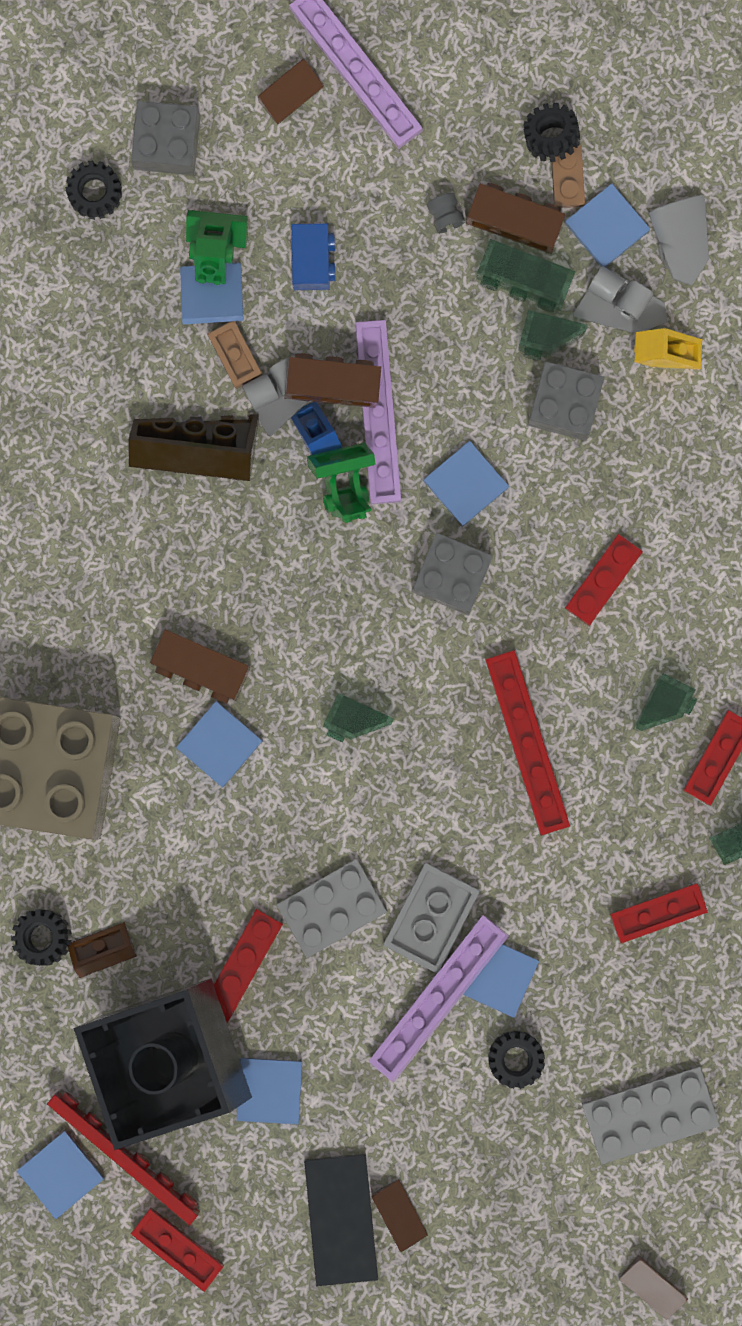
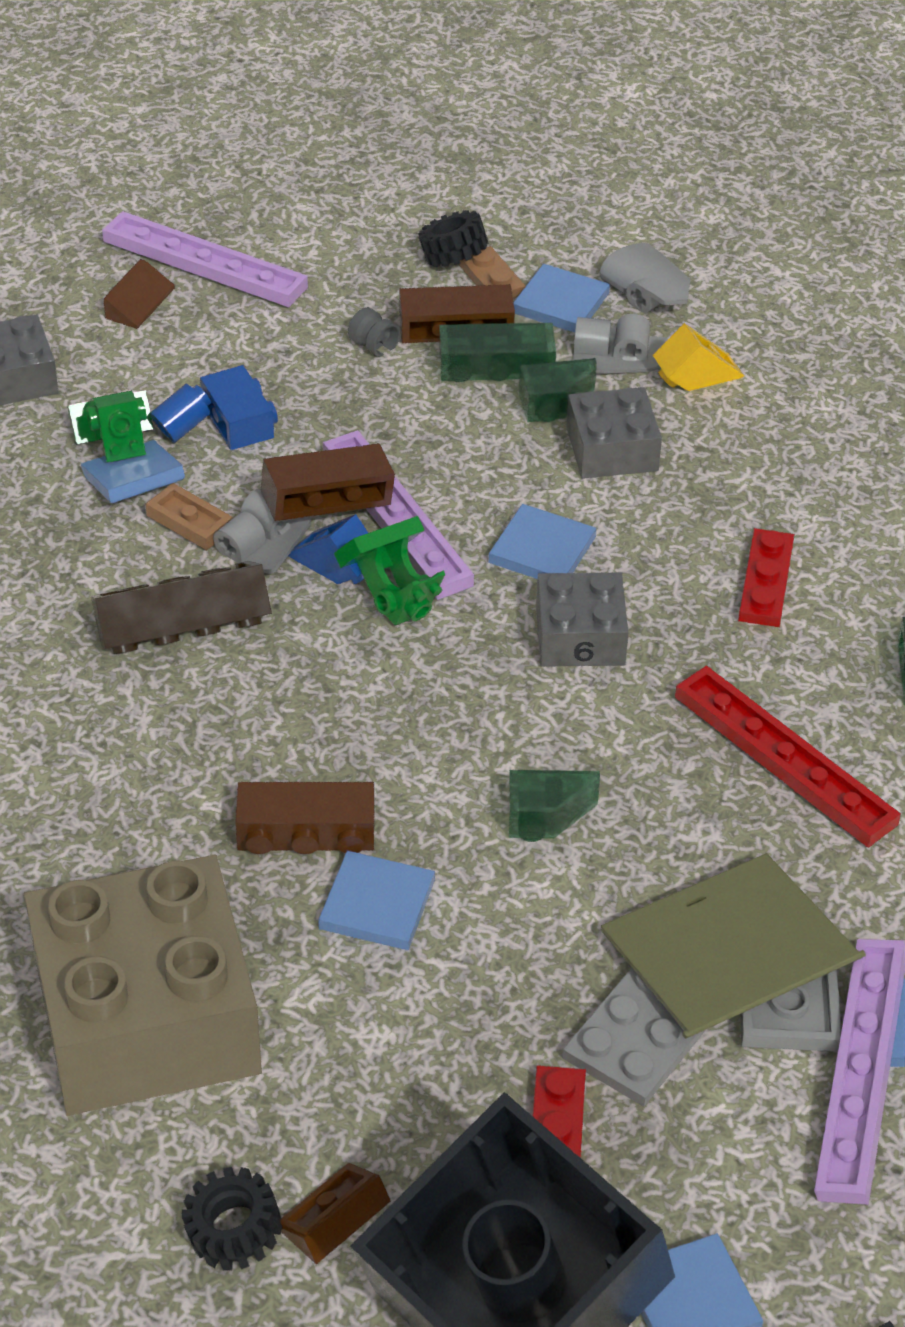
camera: 30 degrees left, 40 degrees down
(267, 249) = (181, 412): none -> blue brick
(408, 883) = (729, 944): none -> olive piece

